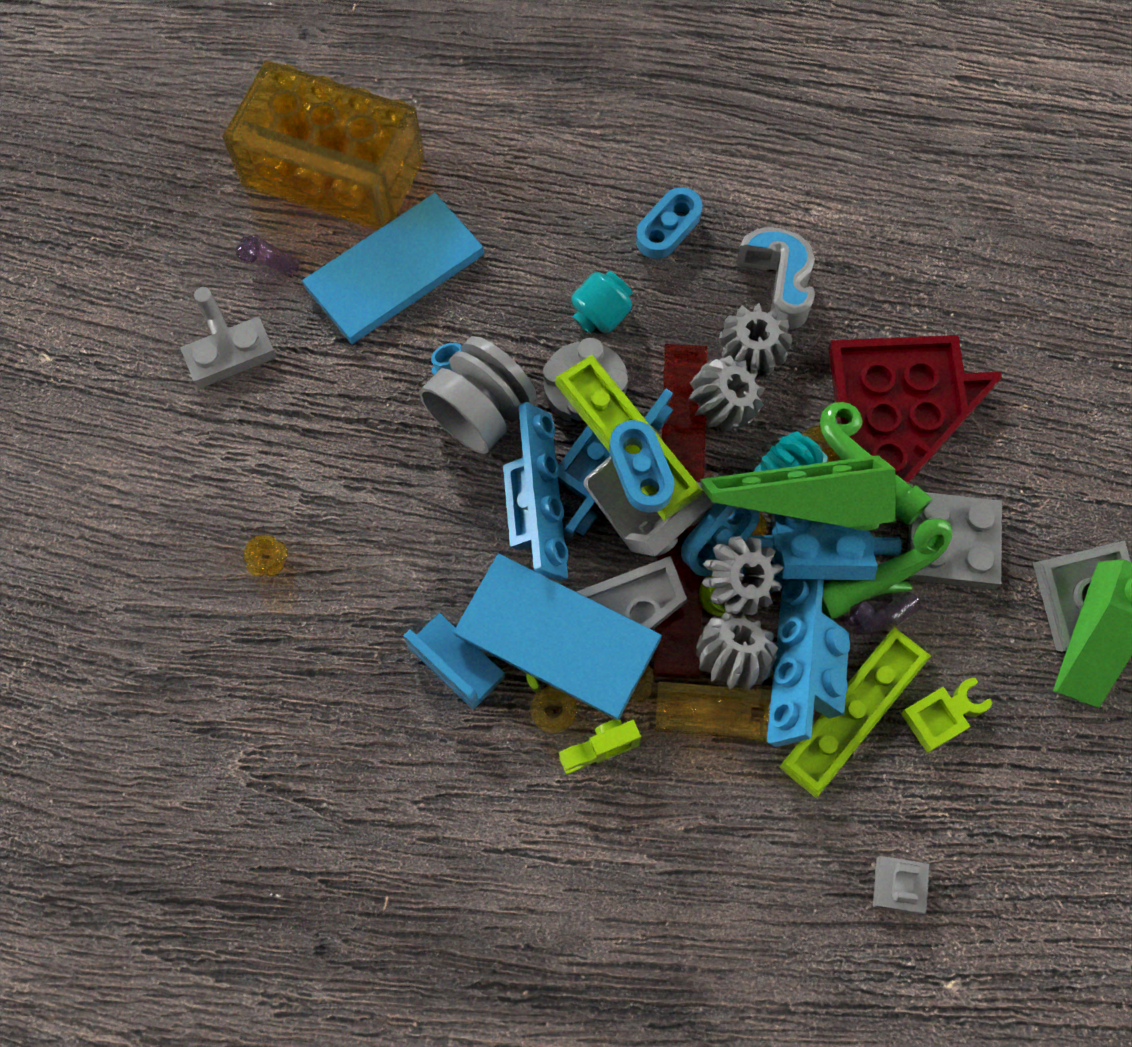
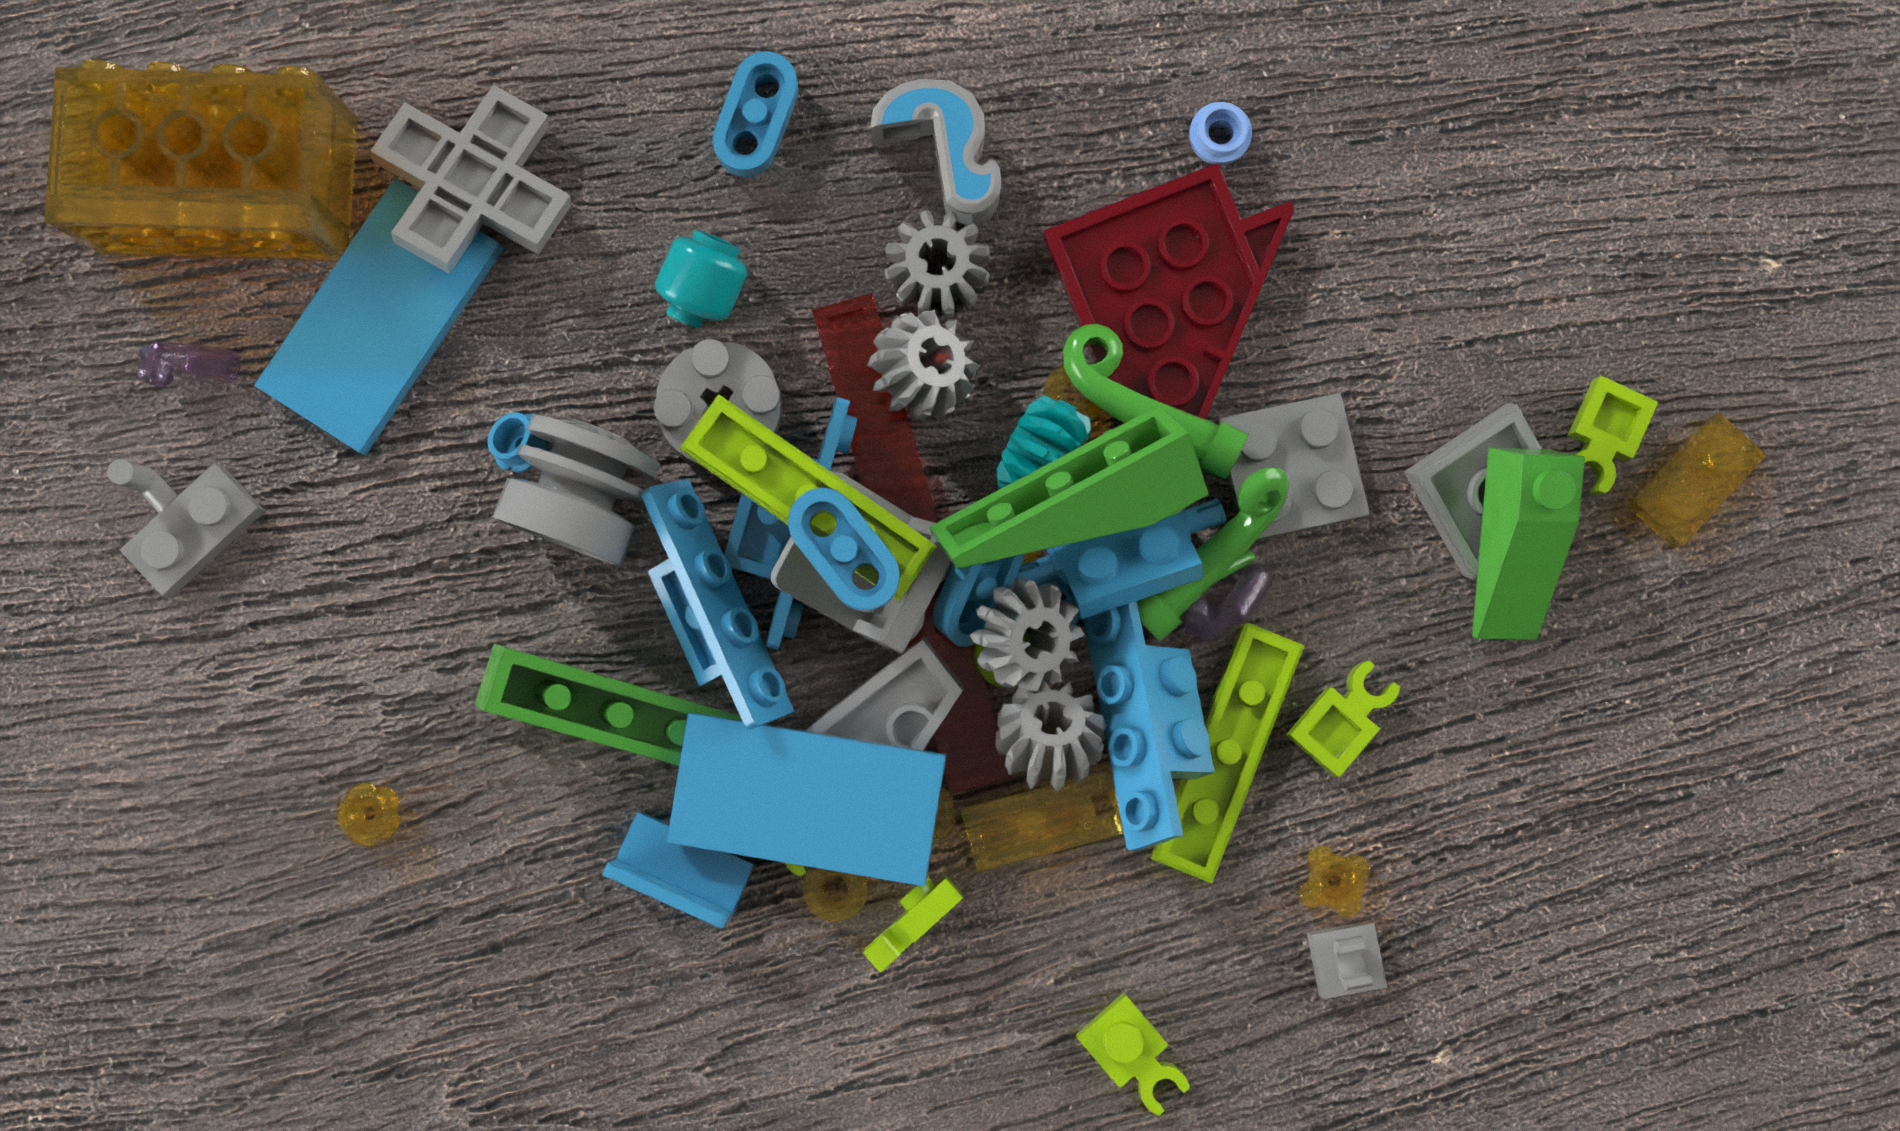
camera: 25 degrees left, 15 degrees up
(431, 529) = (586, 704): none -> bright green slope
(480, 204) = (470, 178): none -> light grey plate
(722, 891) = (1127, 1048): none -> lime plate
(921, 822) = (1347, 894): none -> clear yellow plate
(971, 314) = (1225, 116): none -> light blue plate

